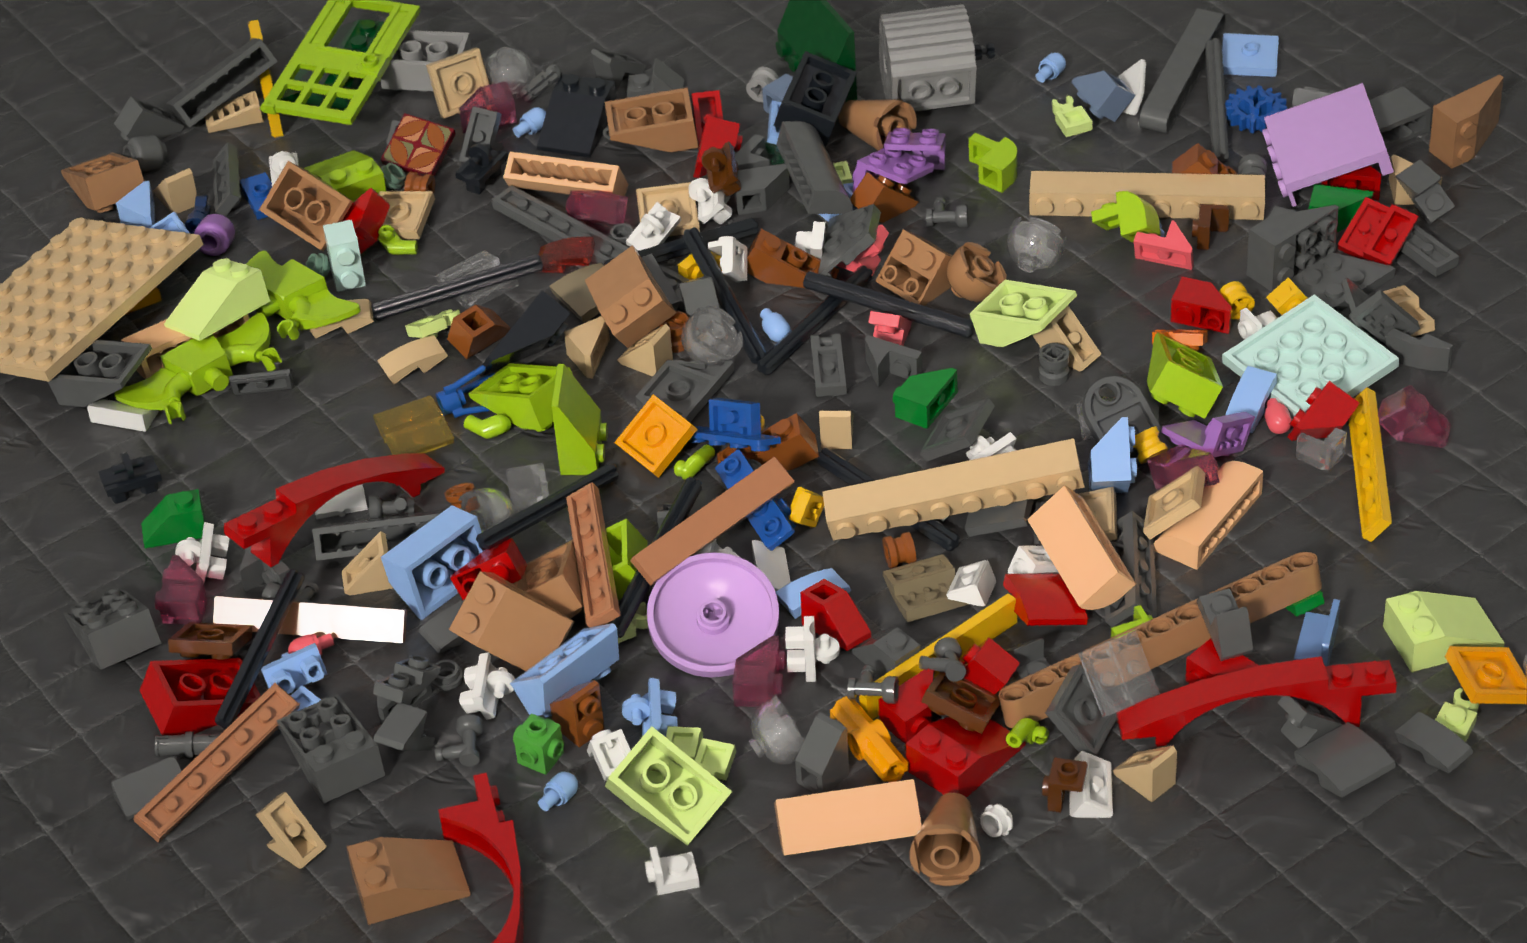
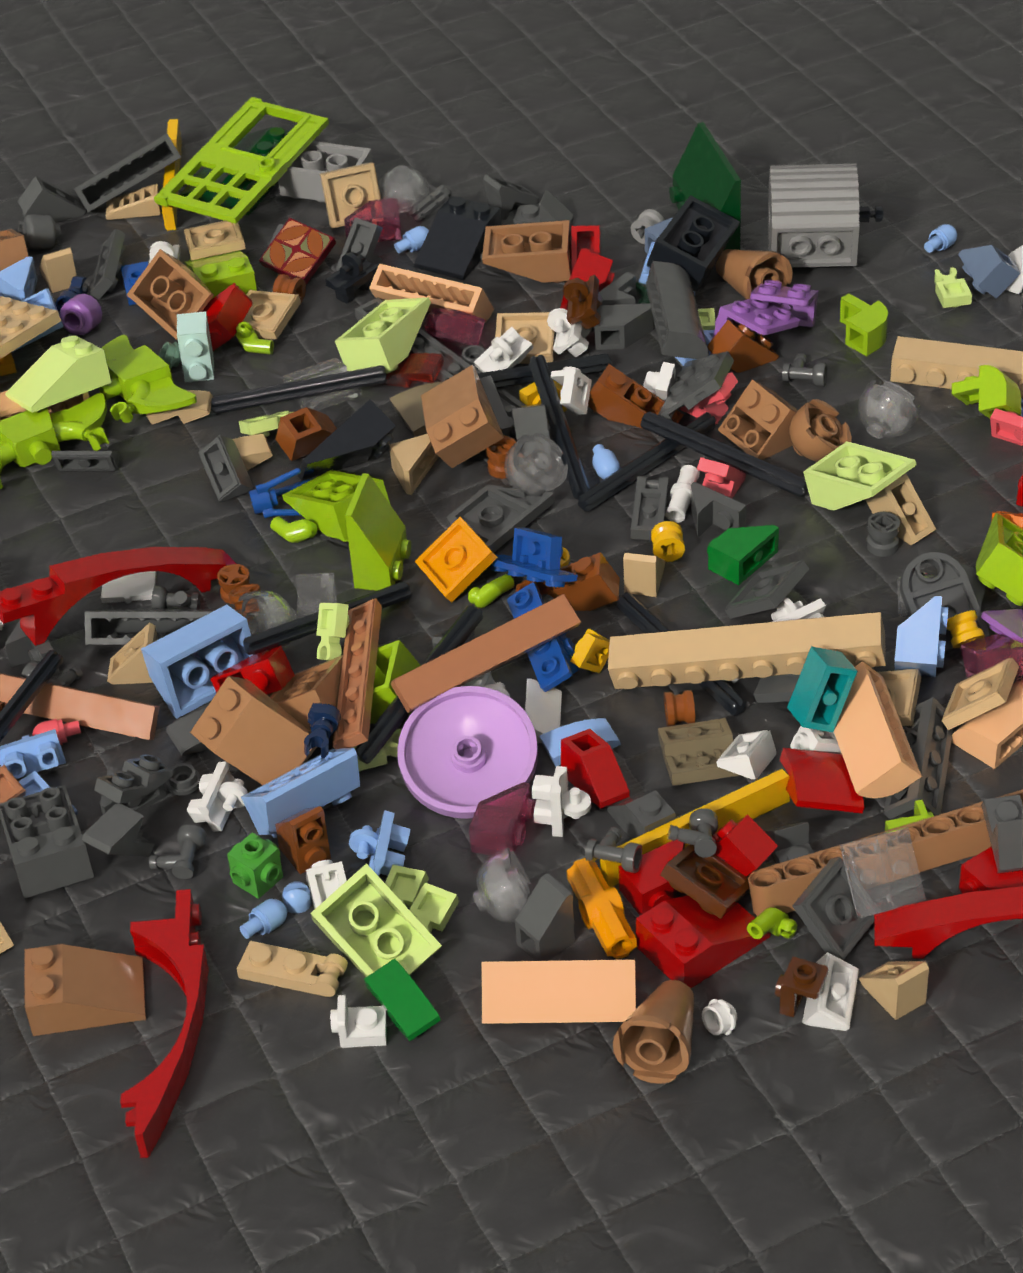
camera: 10 degrees right, 0 degrees up
(328, 143) = (214, 239): none -> tan plate
(393, 176) = (265, 276): sand green plate -> none
(405, 373) = (225, 468): none -> dark grey slope
(414, 427) = (220, 522): clear yellow slope -> none
(440, 480) = (230, 578): none -> dark orange wheel
(530, 223) = (383, 334): none -> yellowish green slope
(556, 513) = (331, 626): none -> yellowish green plate
(574, 604) = (324, 722): none -> dark blue piece
(583, 767) = (297, 897): none -> light blue hinge
(596, 832) = (292, 968): none -> tan plate
(649, 352) = (472, 474): tan slope -> none
(707, 843) = (402, 999): none -> green slope
(853, 394) = (668, 541): none -> yellow wheel
(855, 347) = (681, 494): none -> white pin
(1032, 516) = (822, 689): none -> teal brick

